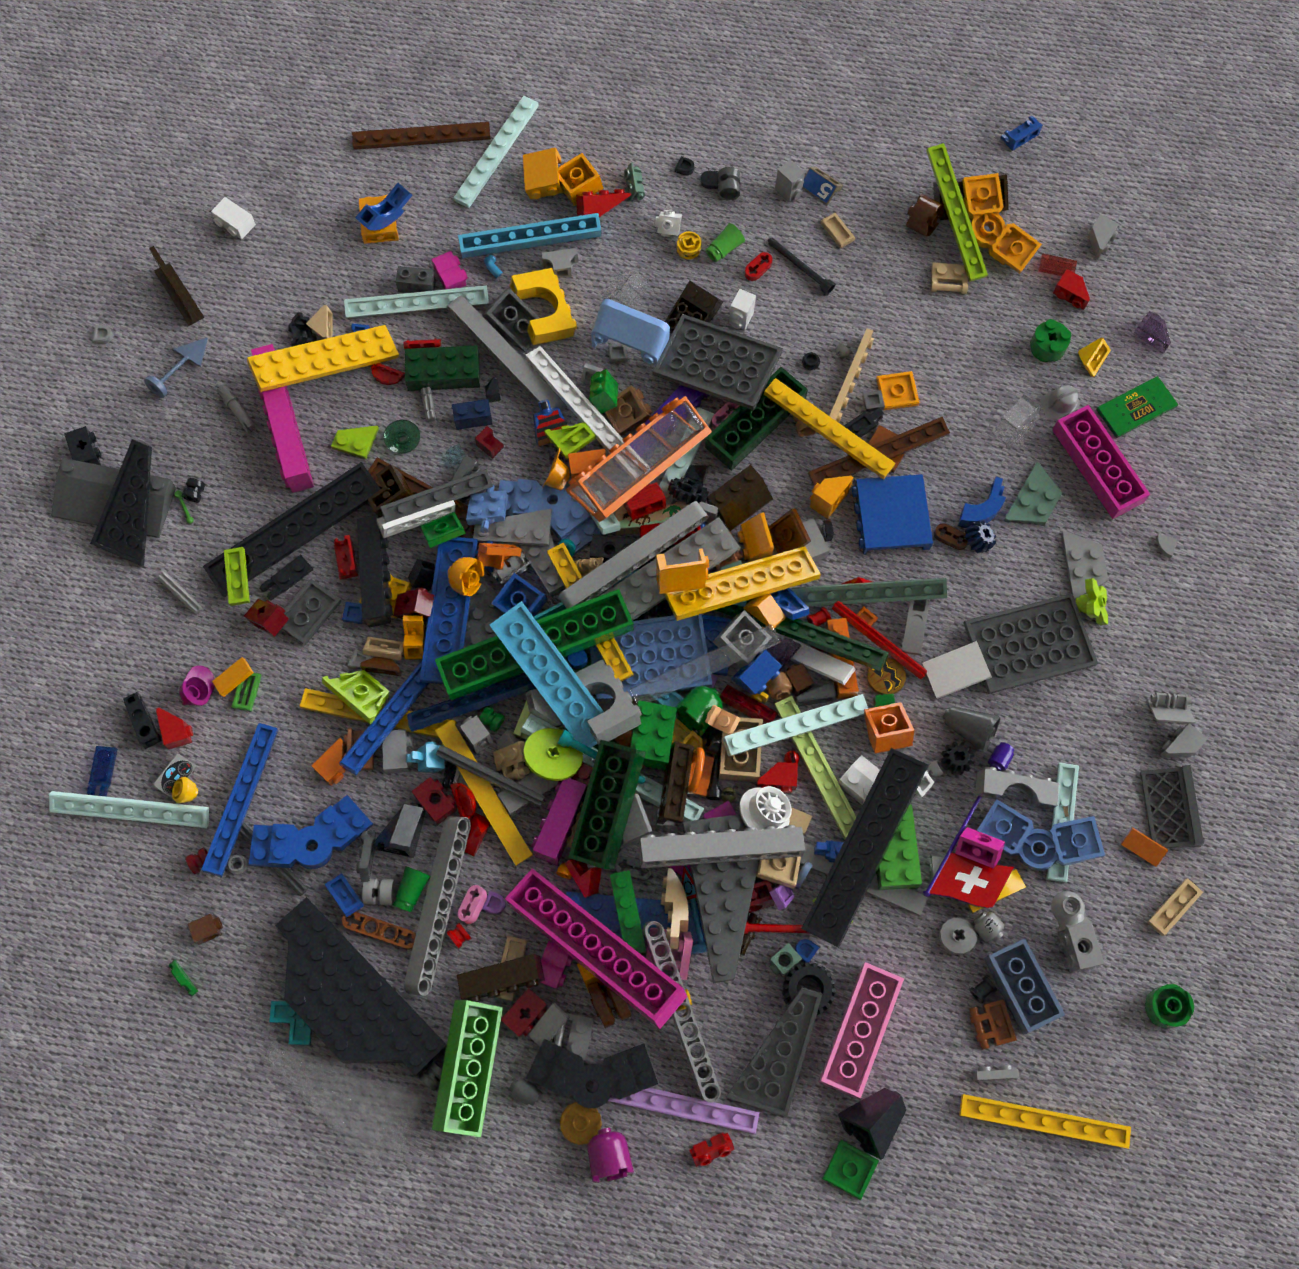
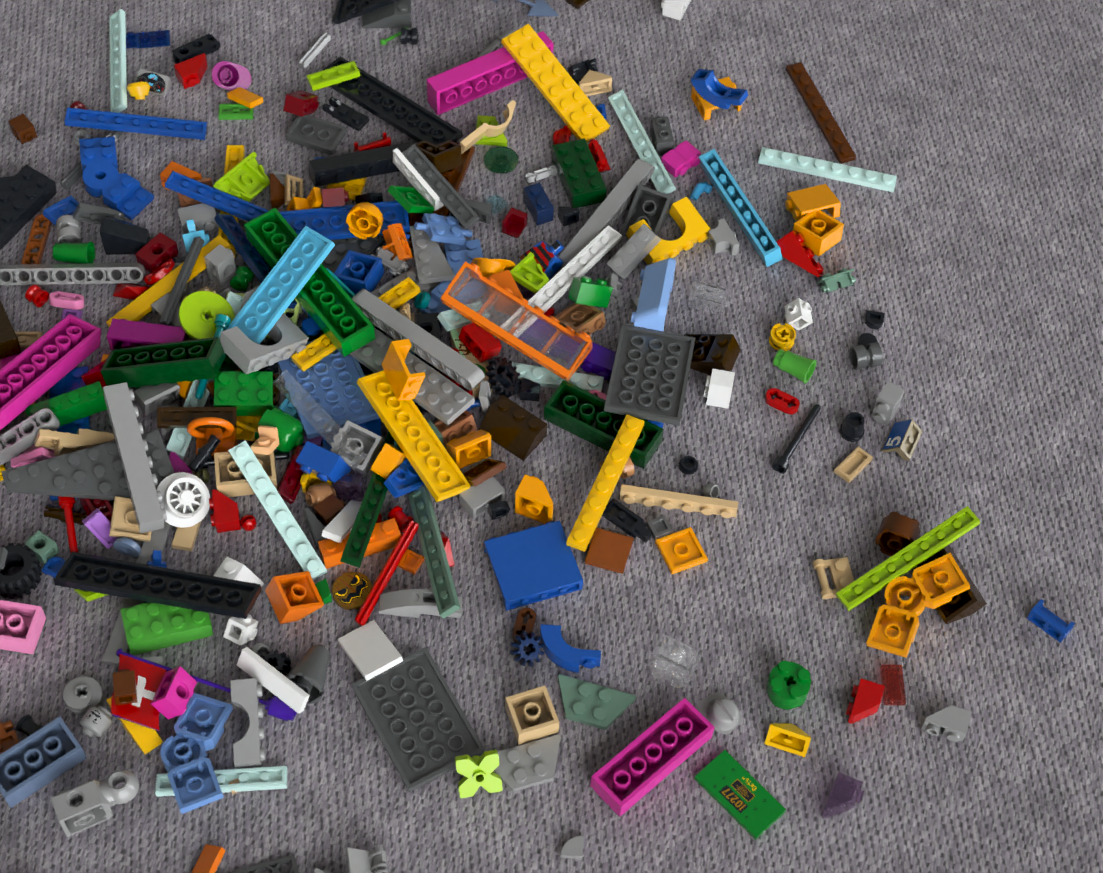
camera: 75 degrees right, 15 degrees down
(366, 444) = (488, 130): none -> tan piece
(566, 339) = (634, 251): none -> light grey brick
(715, 784) = (204, 453): none -> black pin
(802, 218) = (853, 427): none -> black piece
(820, 771) = (246, 541): yellowish green plate -> none
(890, 448) = (602, 544): reddish brown plate -> none
(973, 889) = (124, 687): none -> reddish brown brick
(982, 756) = (273, 680): none -> white tile
(1046, 547) = (532, 715): none -> tan brick

